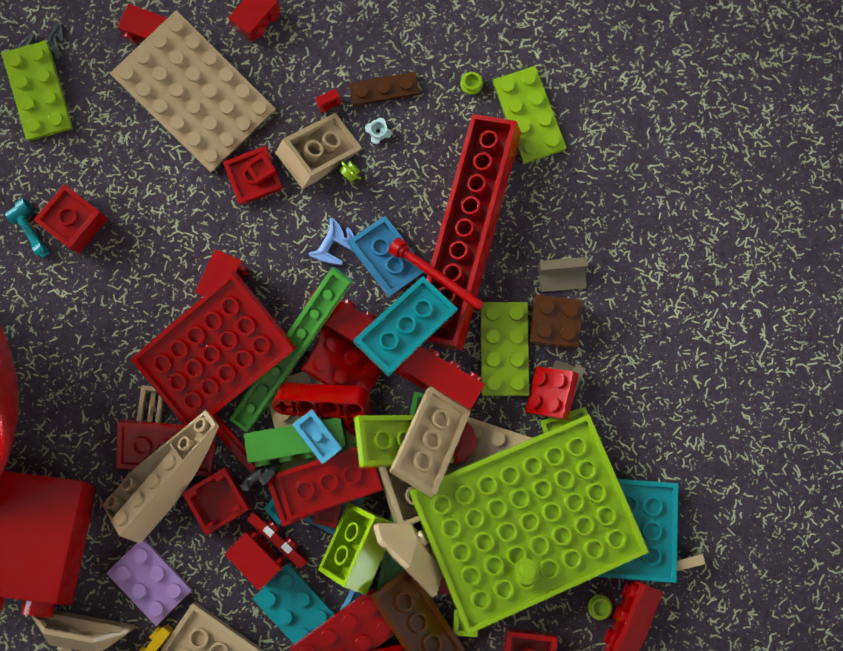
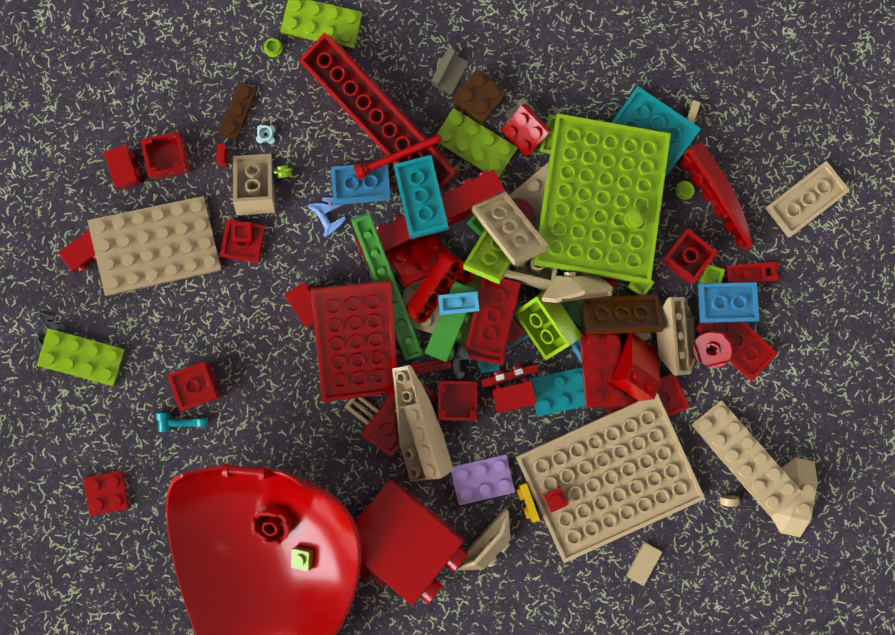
camera: 60 degrees left, 5 degrees up
(292, 46) = (165, 155): none -> red container

